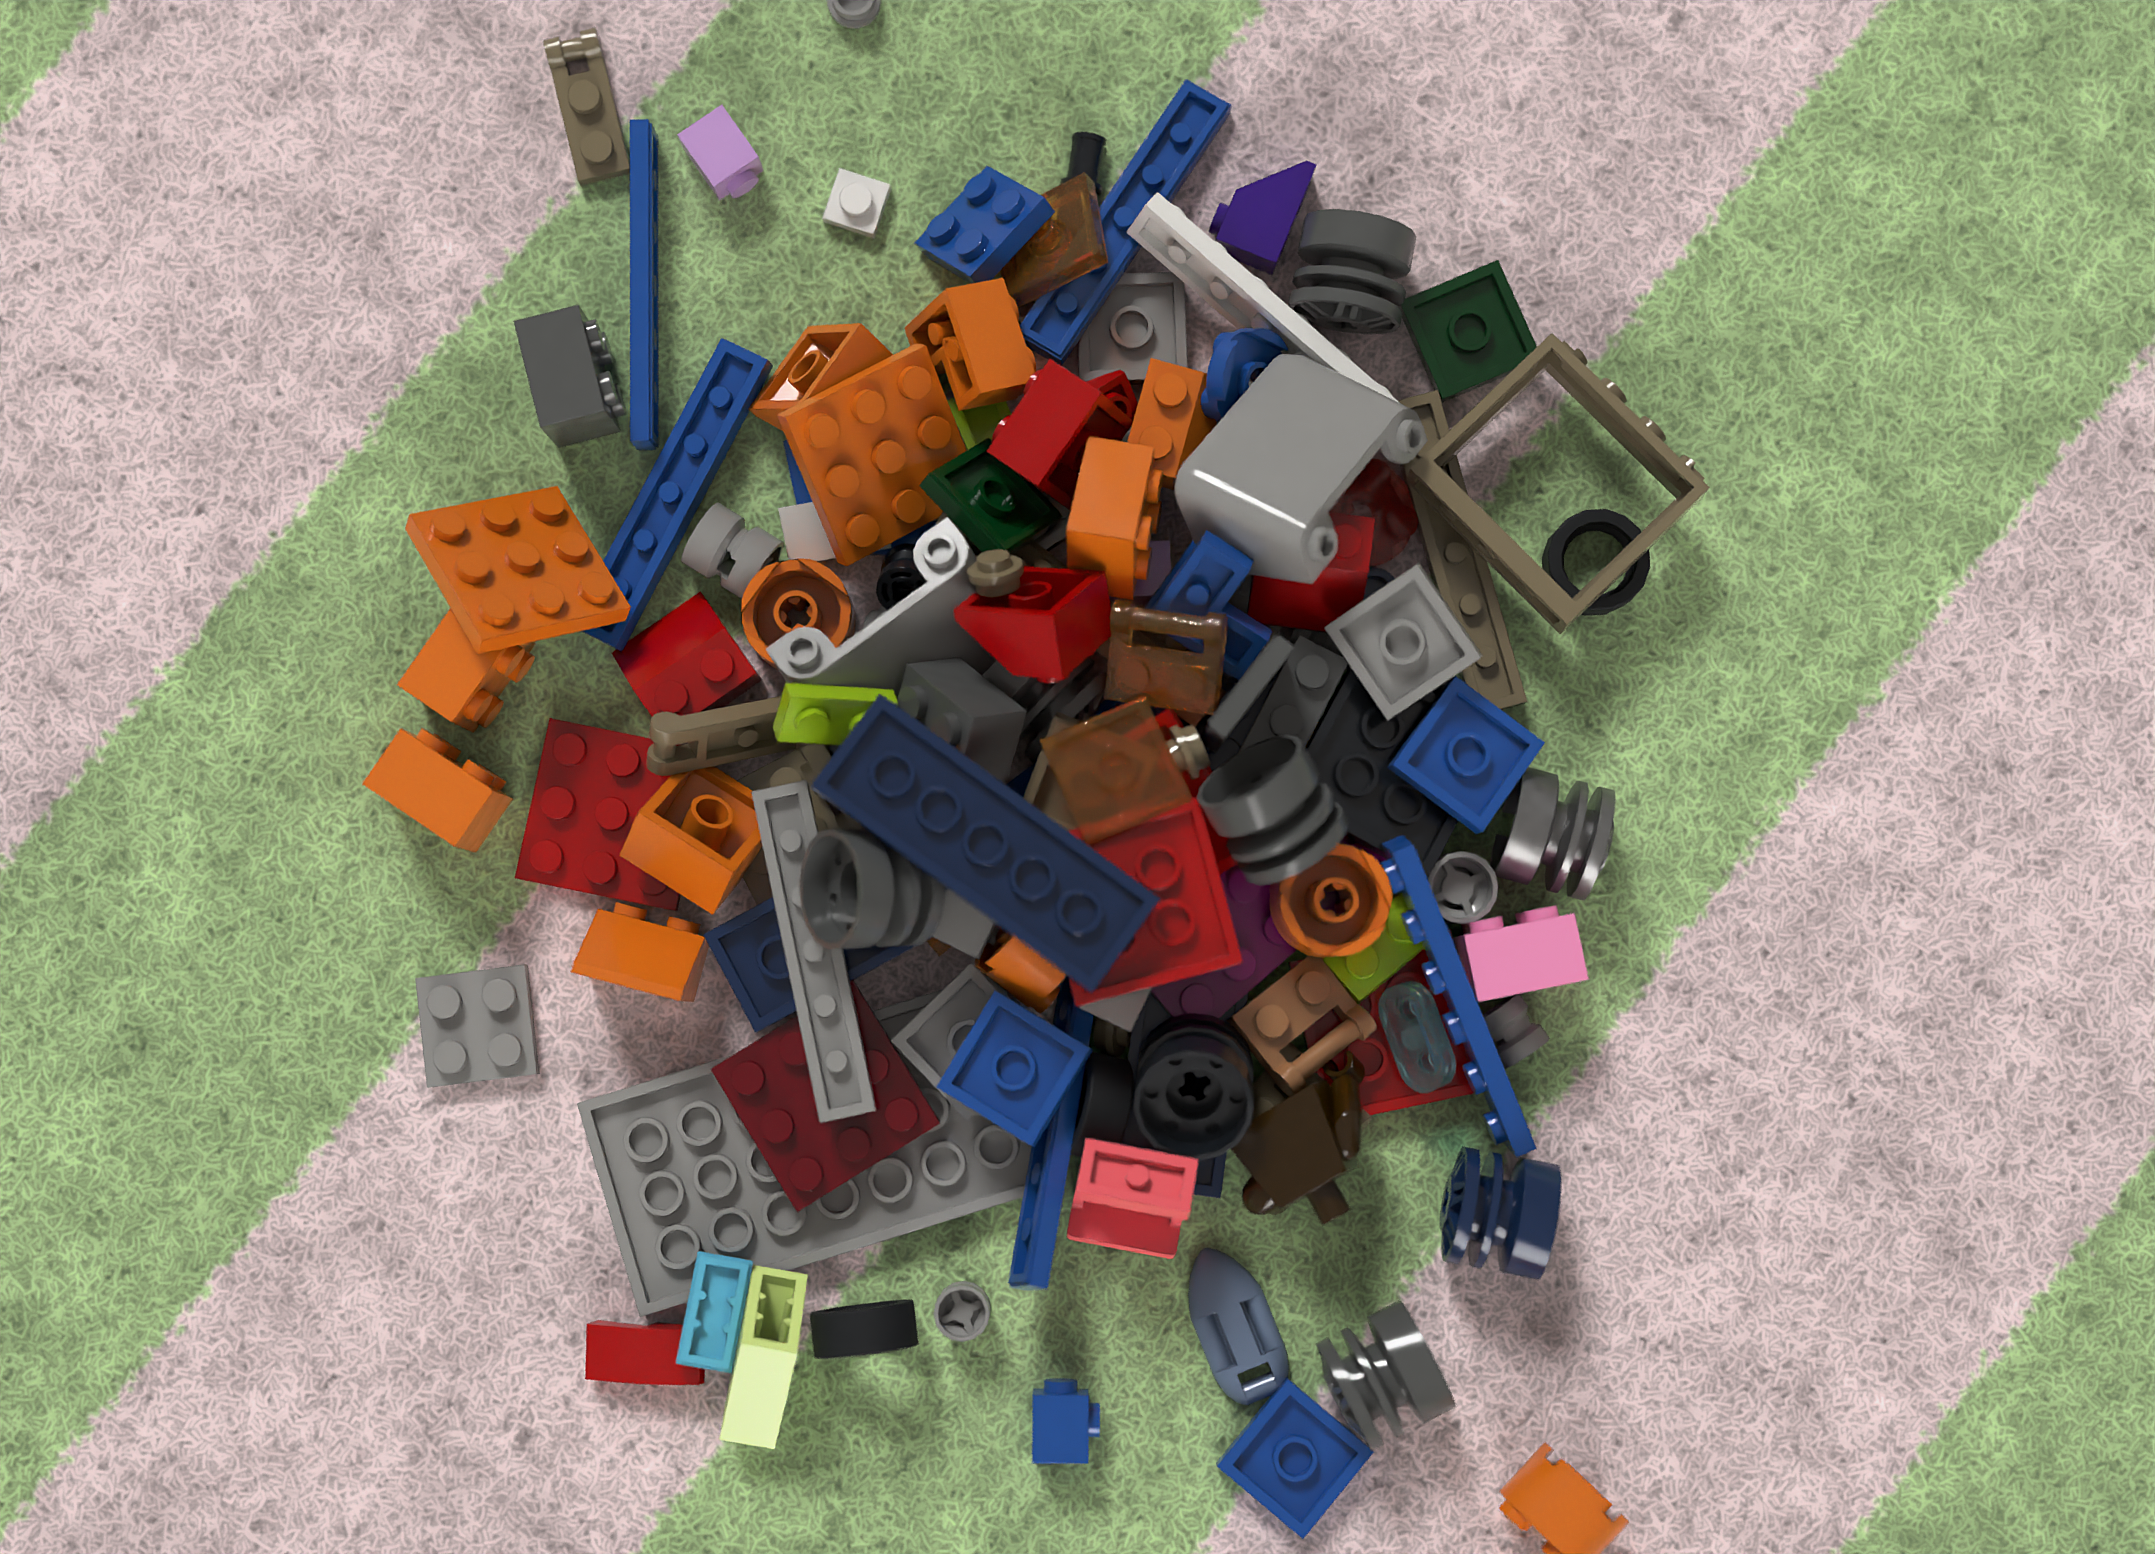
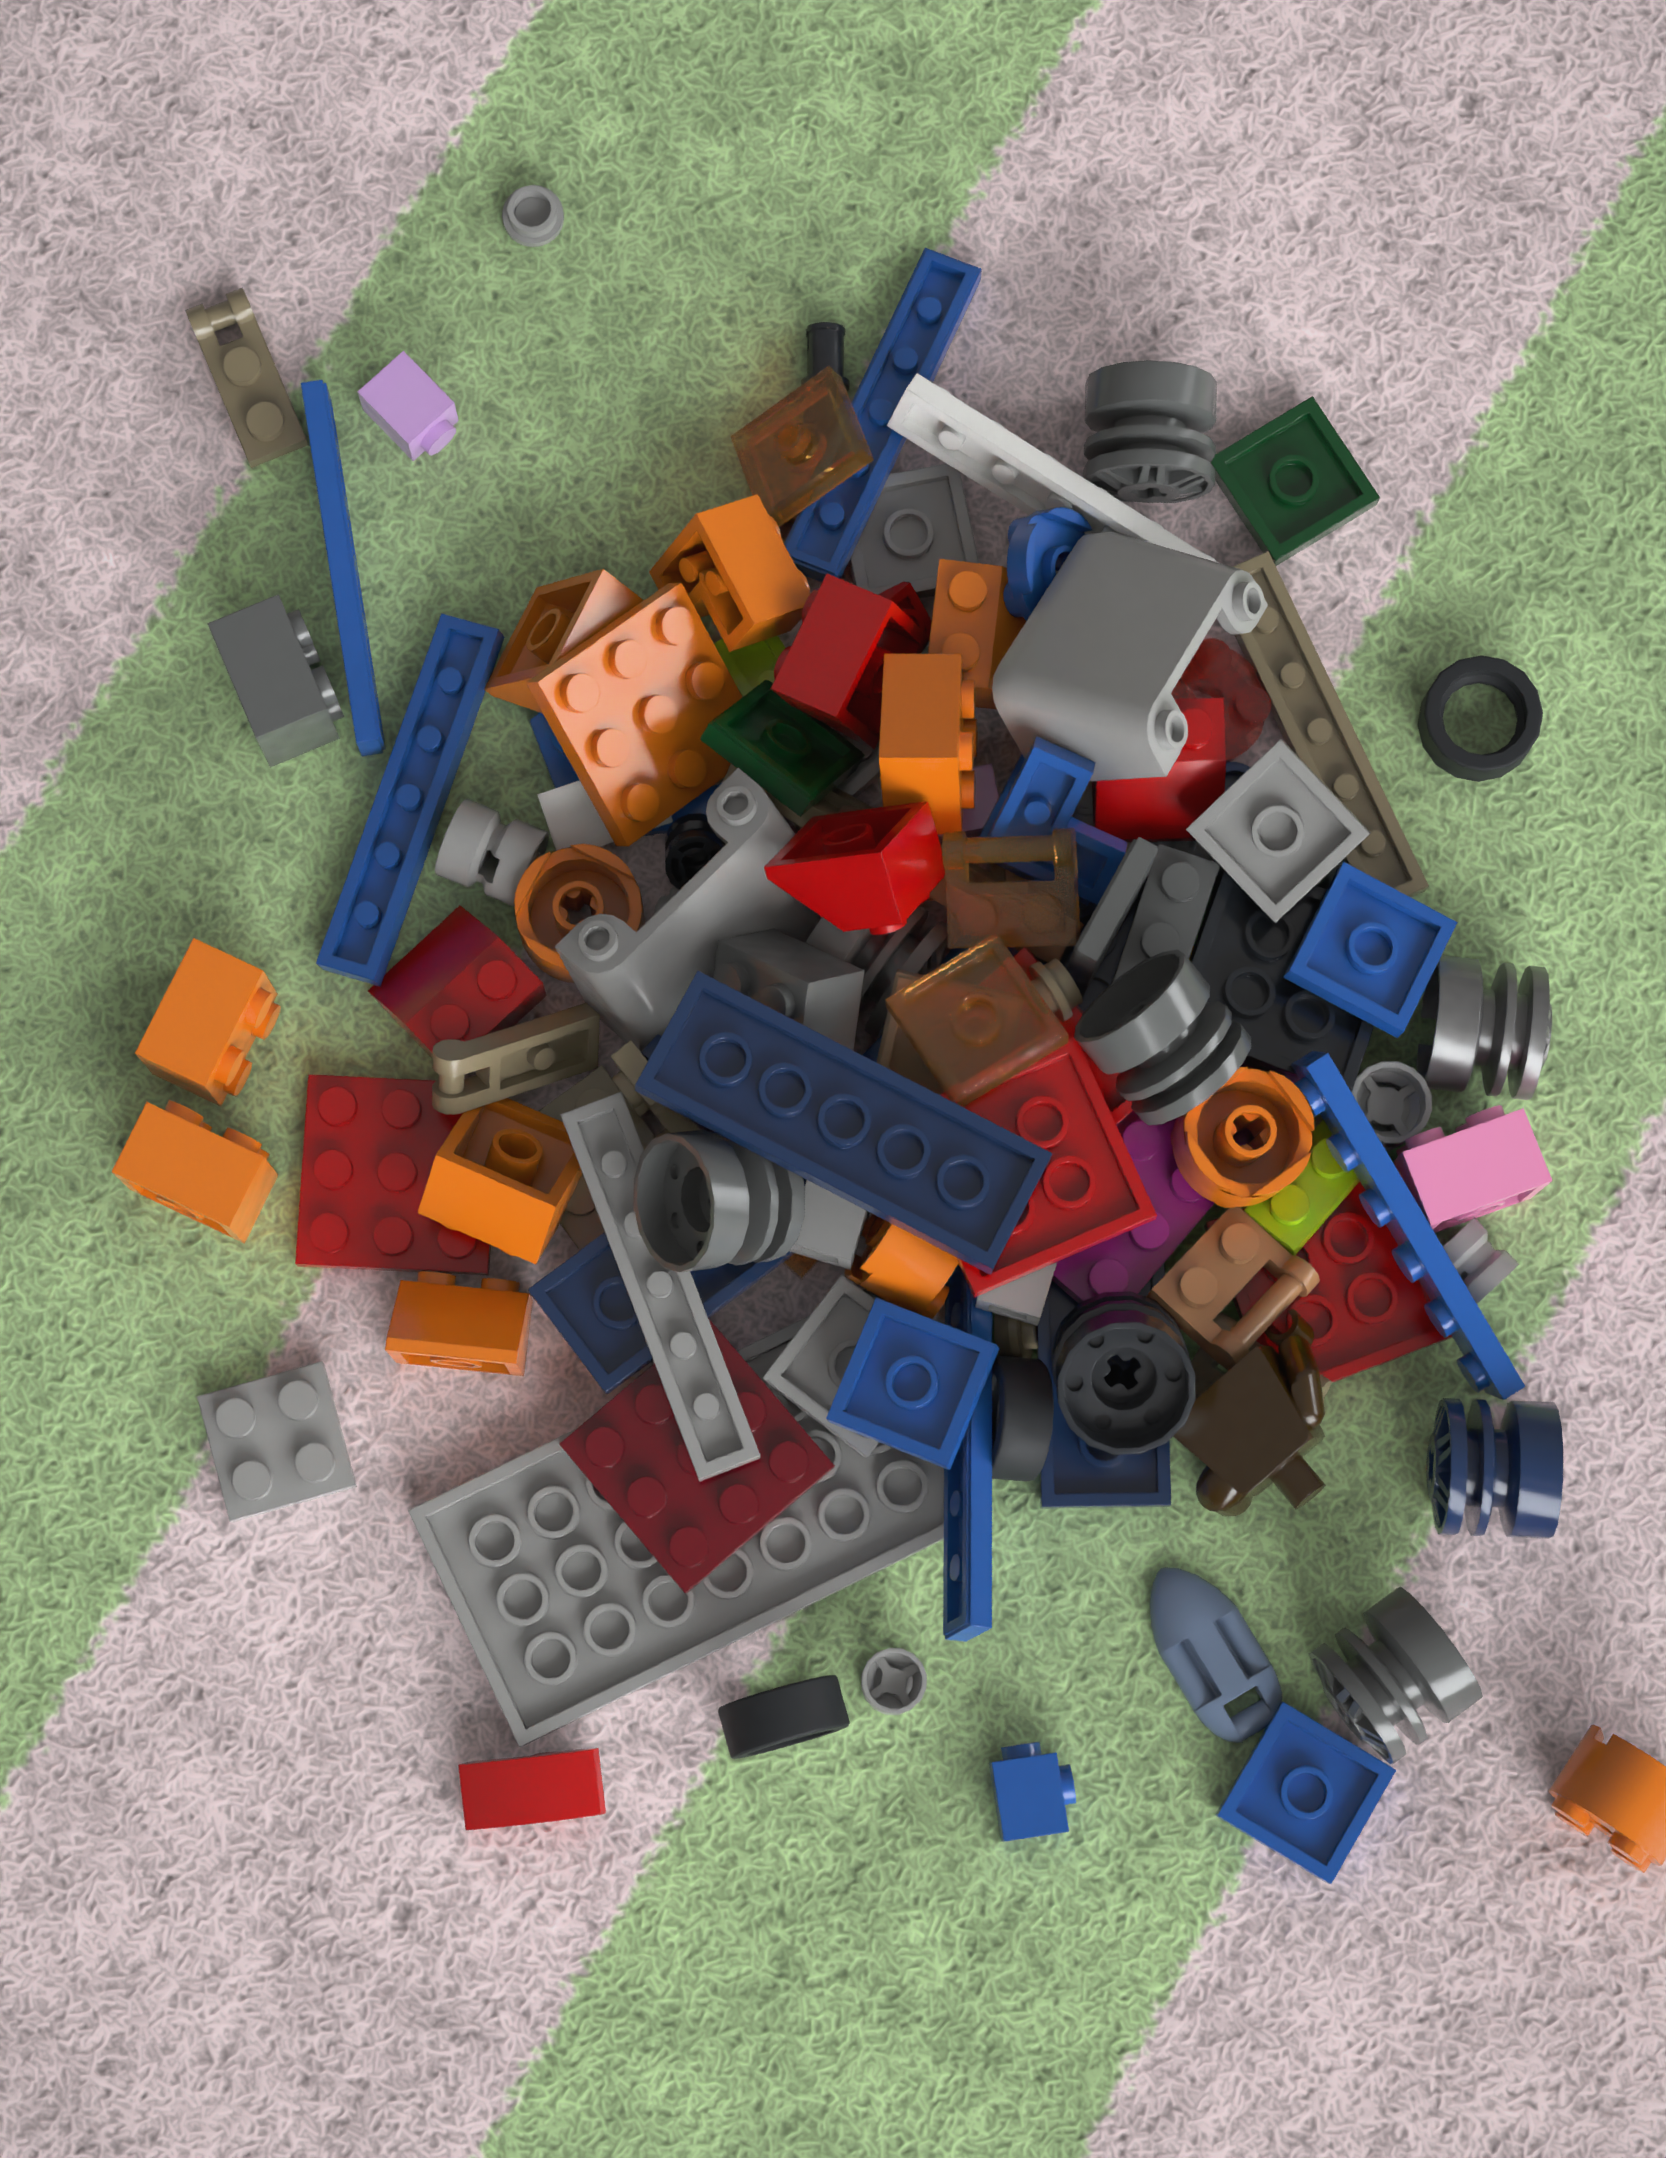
camera: 10 degrees left, 5 degrees down
(517, 569) = (251, 904): orange plate -> none
(714, 1312) = (607, 1724): medium azure plate -> none
(764, 1357) = (673, 1769): yellowish green slope -> none
(823, 712) = (629, 1009): lime plate -> none
(856, 203) = (571, 441): white plate -> none
(984, 226) = (723, 443): blue plate -> none
(996, 573) = (804, 821): dark tan plate -> none
(1131, 1198) = (1069, 1514): coral panel -> none
(1262, 217) = (1038, 386): dark purple slope -> none
(1417, 1036) = (1367, 1282): clear light blue plate -> none
(1607, 405) = (1365, 714): dark tan window -> none

